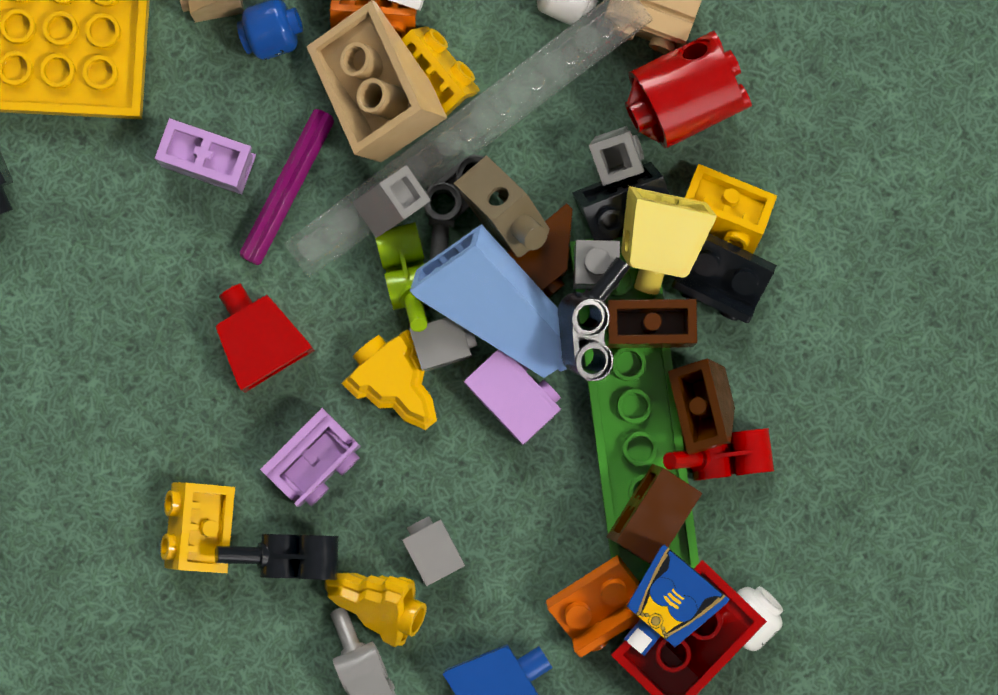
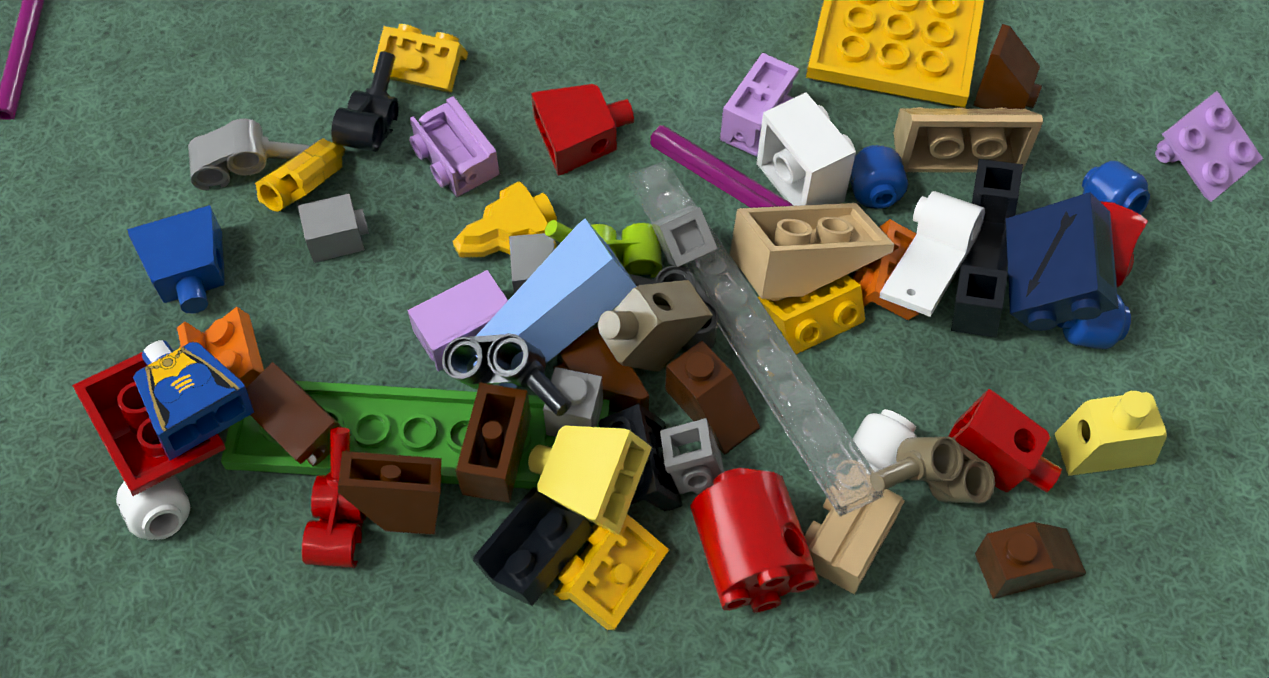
camera: 105 degrees right, 25 degrees down
(271, 98) = (805, 153): none -> white brick
(547, 151) = (710, 391): none -> reddish brown slope

